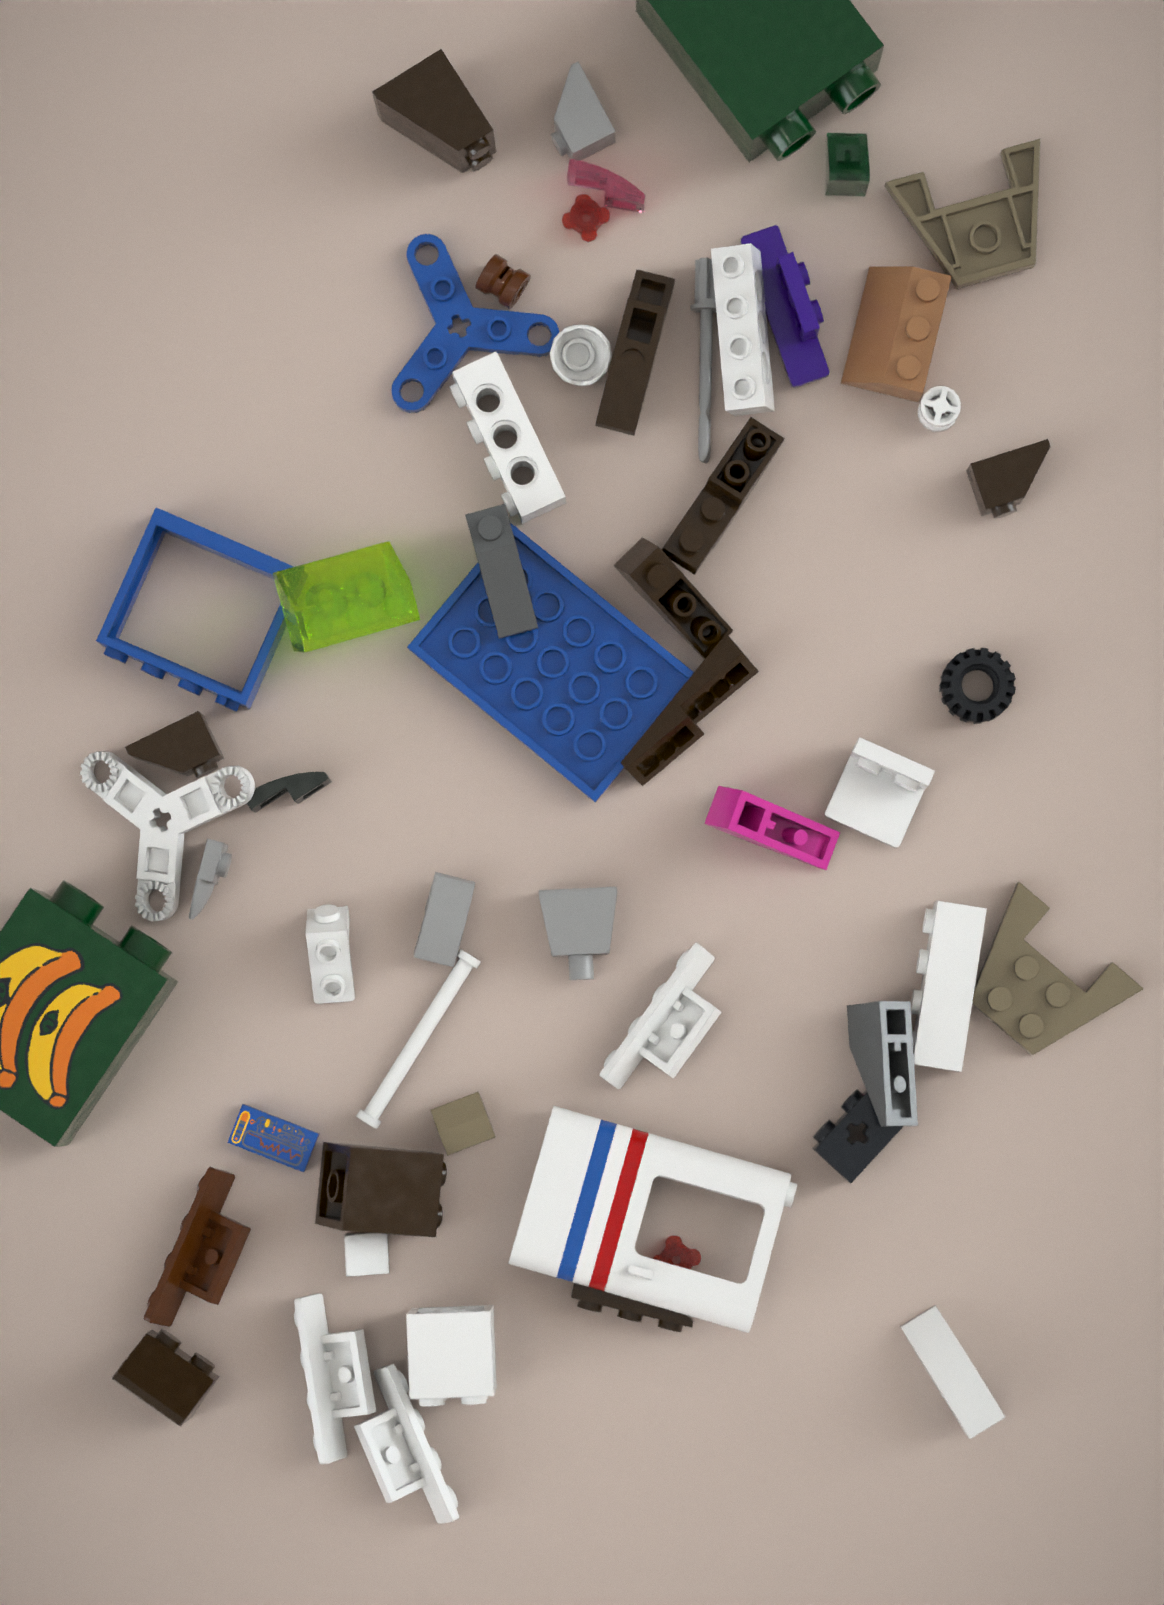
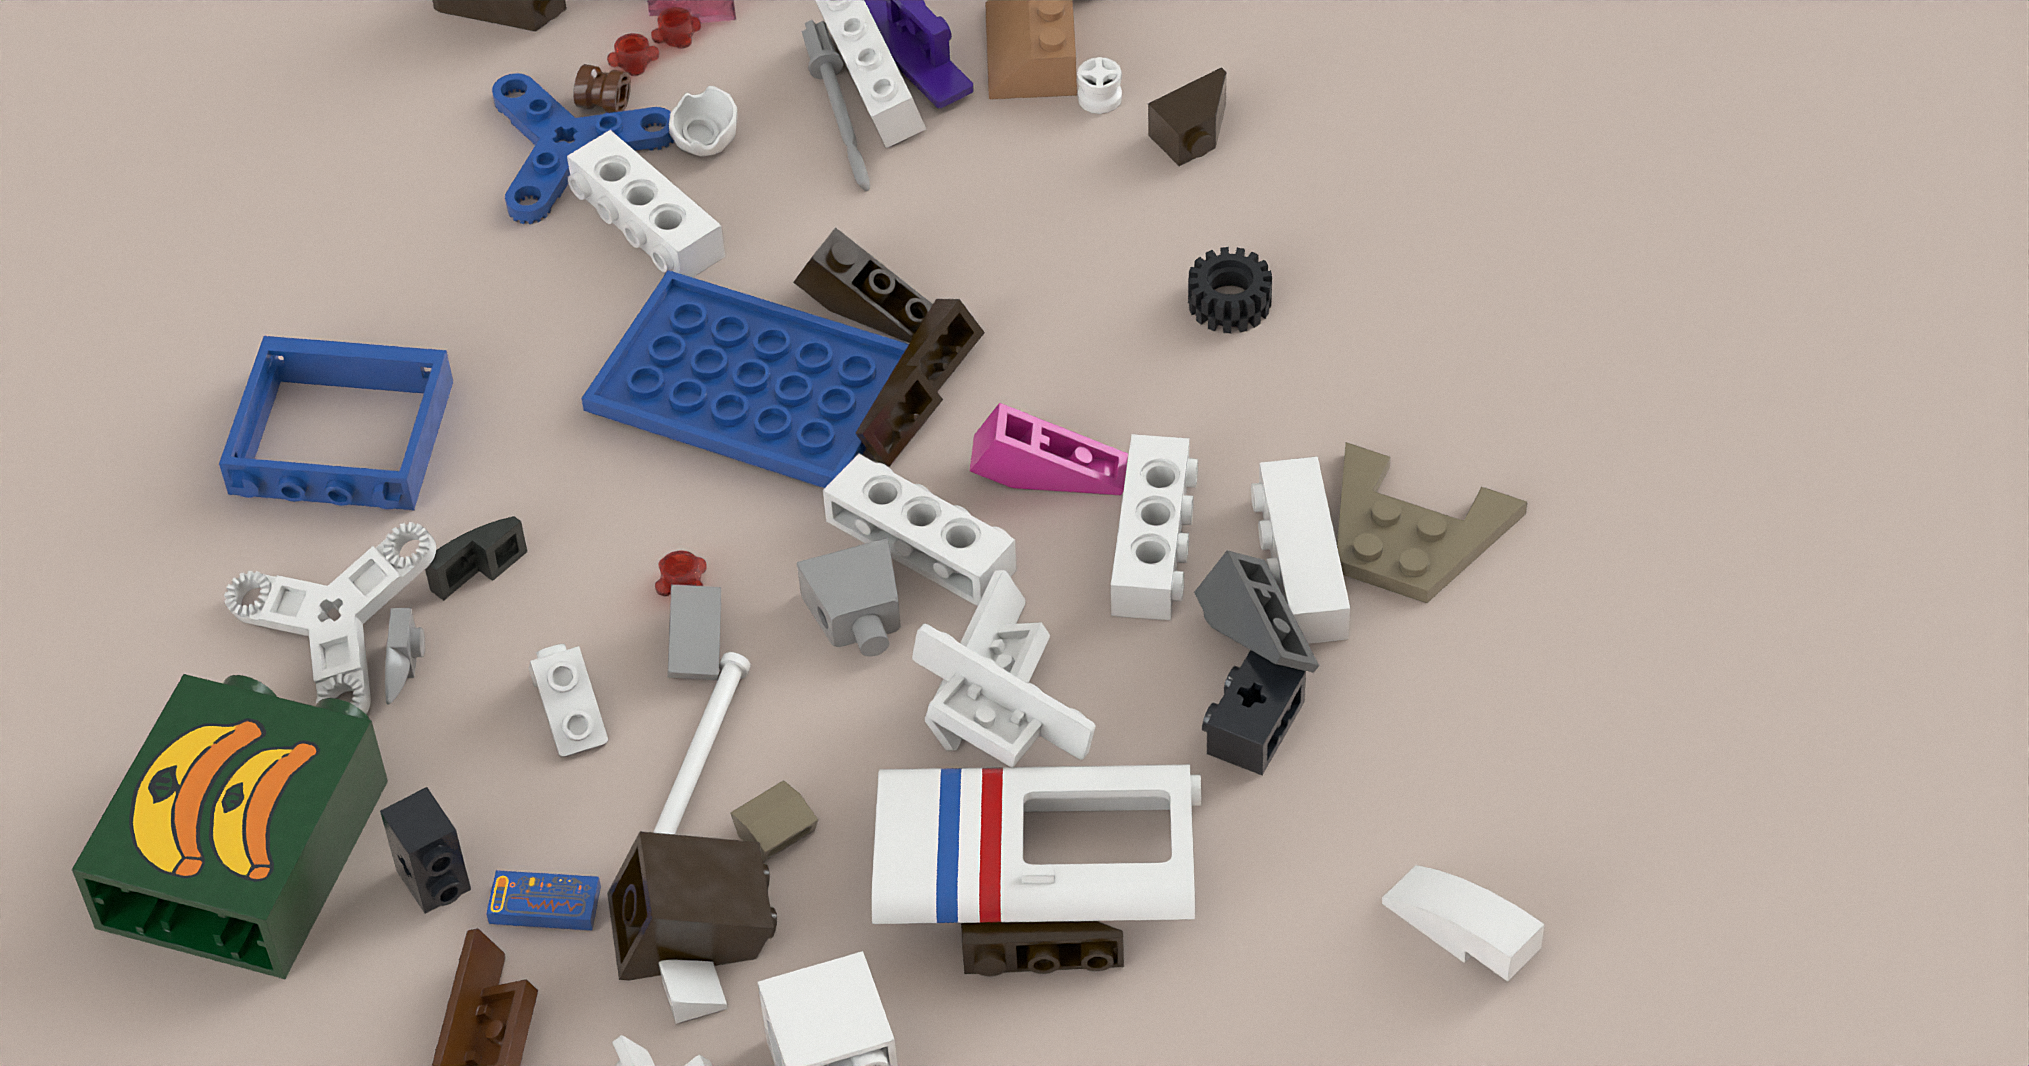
camera: 20 degrees left, 35 degrees down
(180, 747) = (329, 544): dark brown slope -> none
(190, 1089) = (426, 850): none -> black brick
(345, 597) = (502, 366): clear neon green slope -> none
(458, 849) = (679, 569): none -> clear red plate
(501, 571) = (666, 294): dark grey slope -> none
(540, 228) = (632, 54): none -> clear red plate
(635, 352) = (760, 110): dark brown slope -> none
(650, 1092) = (993, 705): none -> white bracket
(678, 927) = (920, 527): none -> white brick
(723, 495) = (897, 194): dark brown slope -> none
(800, 979) = (1151, 528): none -> white brick
(878, 792) = (1157, 389): white bracket -> none

